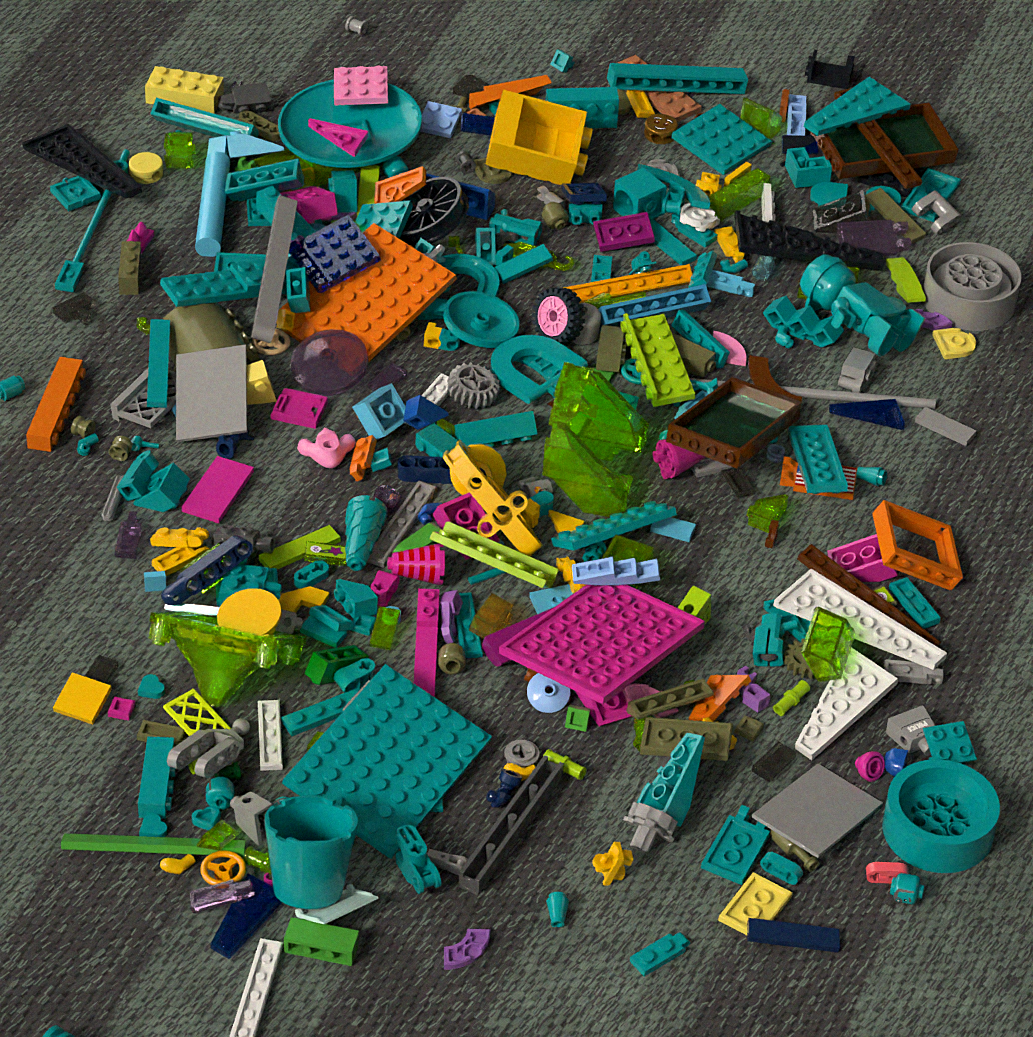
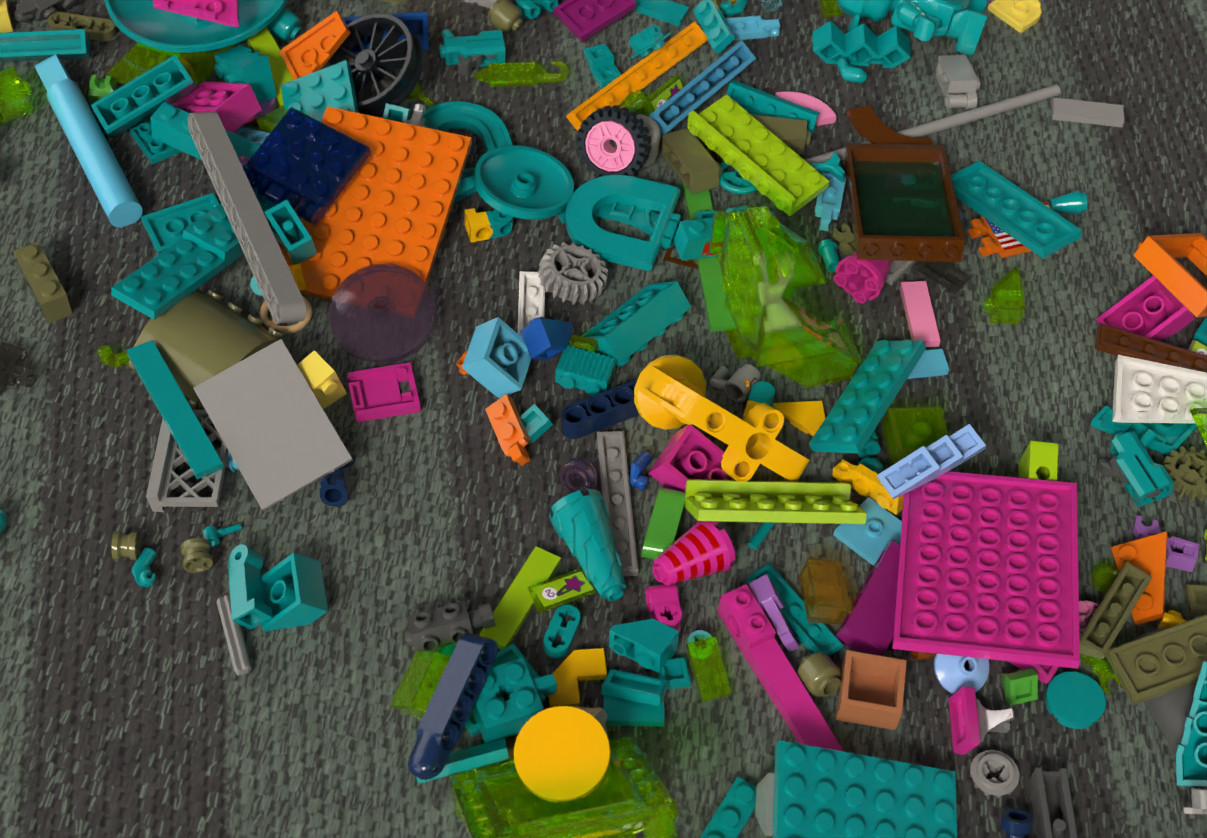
camera: 30 degrees left, 10 degrees up
(55, 404) = (66, 527): orange brick -> none
(128, 537) = (293, 689): clear purple hinge -> none
(142, 235) = (25, 231): dark pink tile -> none
(154, 581) = (374, 742): medium azure tile -> none
(177, 558) = (379, 689): yellow hinge -> none
(179, 537) = (365, 659): yellow hinge -> none
(217, 489) = (362, 559): dark pink tile -> none
(247, 145) = (88, 59): medium azure slope -> none
(327, 662) = (687, 755): green slope -> none
(328, 448) = (463, 437): bright pink head -> none
(354, 676) = (723, 765): teal piece -> none
(391, 374) = (461, 306): clear purple tile -> none
(475, 676) = (871, 690): none -> nougat piece
(485, 244) = (455, 81): teal slope -> none
(504, 255) = (486, 89): teal plate -> none
(523, 263) = (516, 89): teal tile -> none
(524, 772) = (1017, 800): yellow arm -> none
(532, 722) = (972, 721): none -> dark pink piece
(569, 766) = (1053, 762): lime pin -> none
(610, 741) = (1075, 700): none -> teal tile
(699, 500) = (920, 313): none -> bright pink tile
(773, 531) = (1030, 325): reddish brown tile -> none
(877, 412) = (1012, 123): clear blue wing -> none

